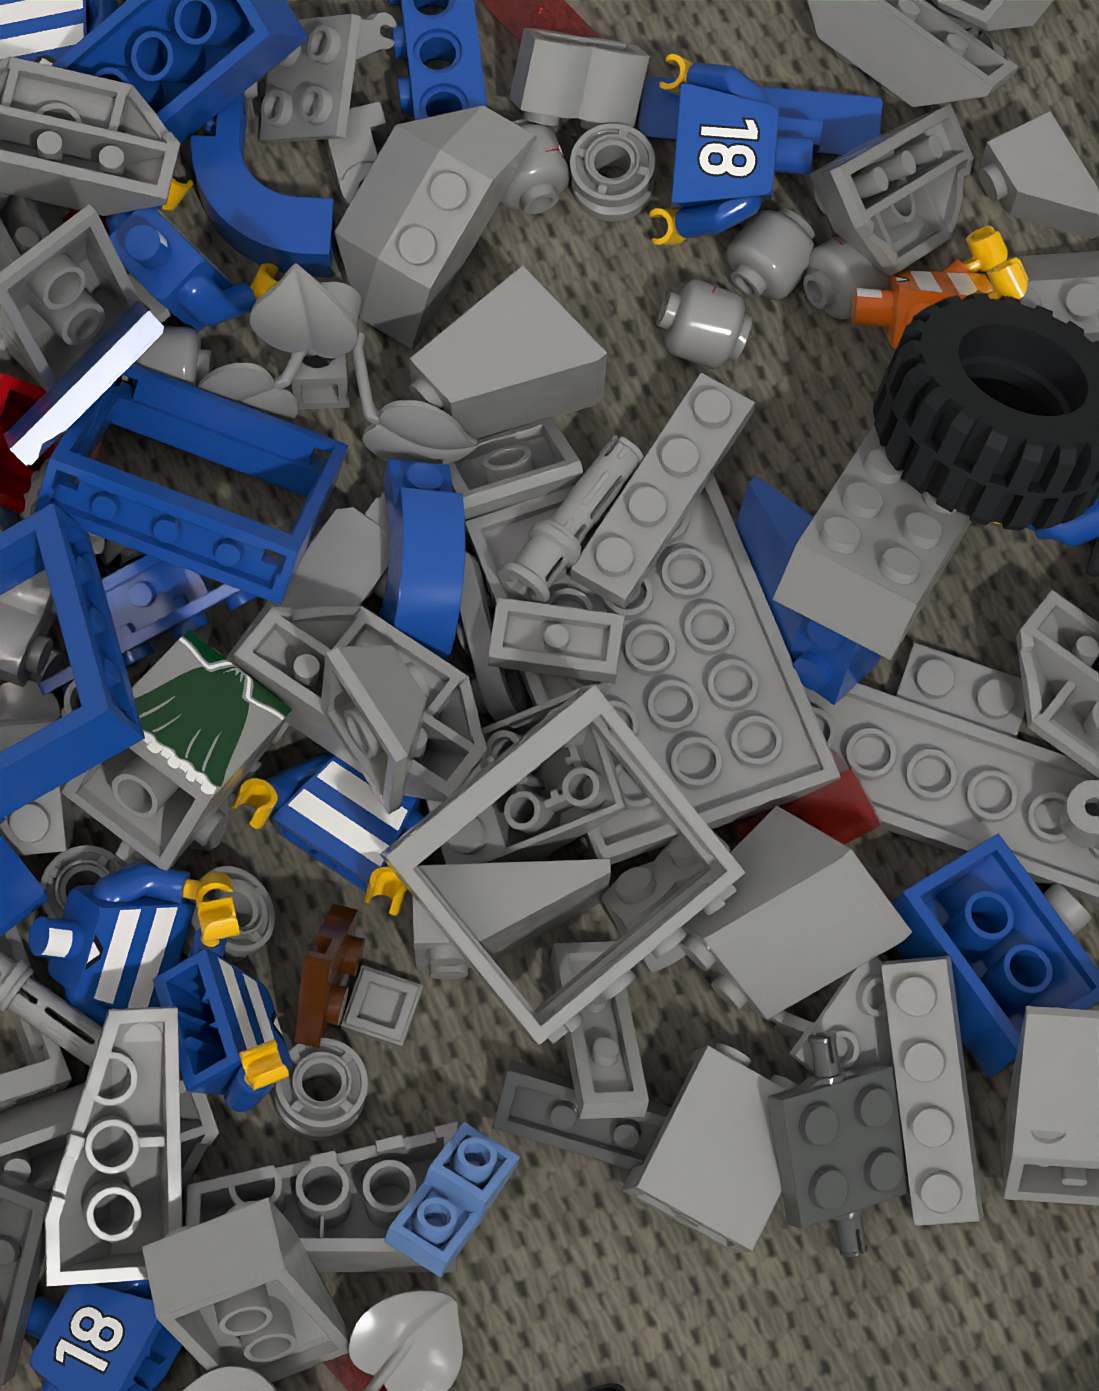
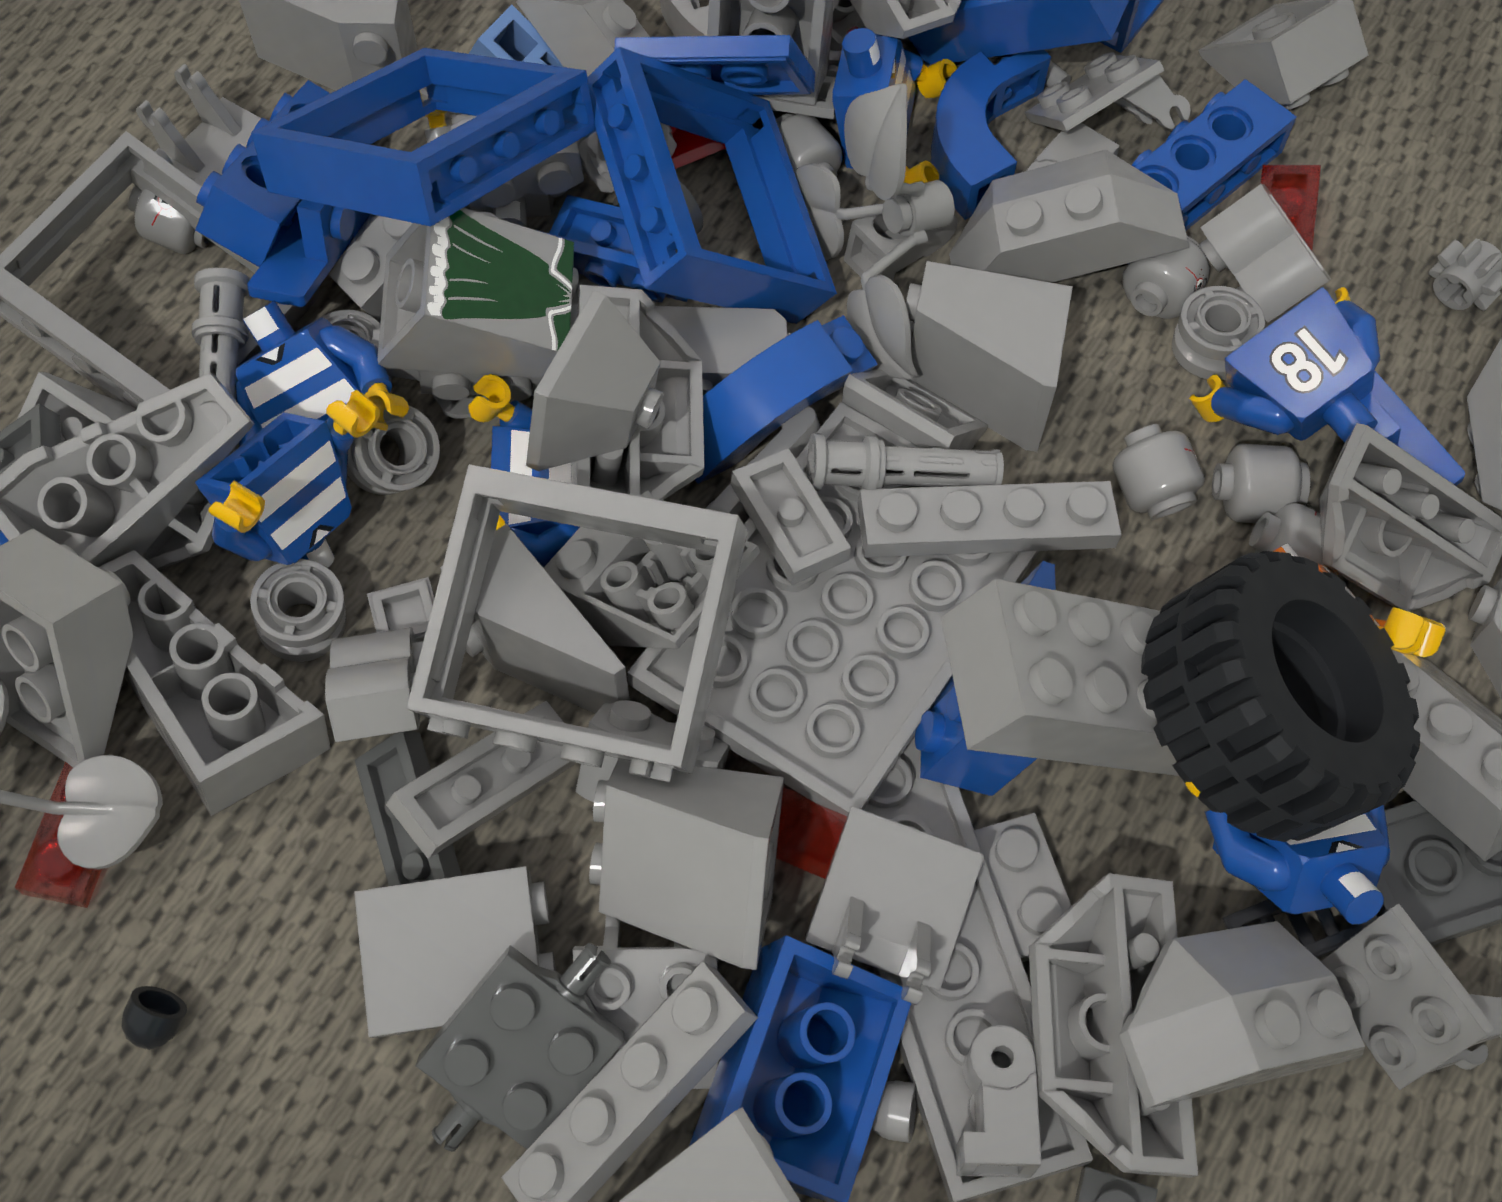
camera: 55 degrees right, 10 degrees down
(321, 993) = (384, 538): reddish brown wing -> none
(450, 1063) = (372, 684): none -> light grey brick
(452, 1199) = (241, 750): medium blue slope -> none
(925, 798) = (893, 901): none -> light grey plate

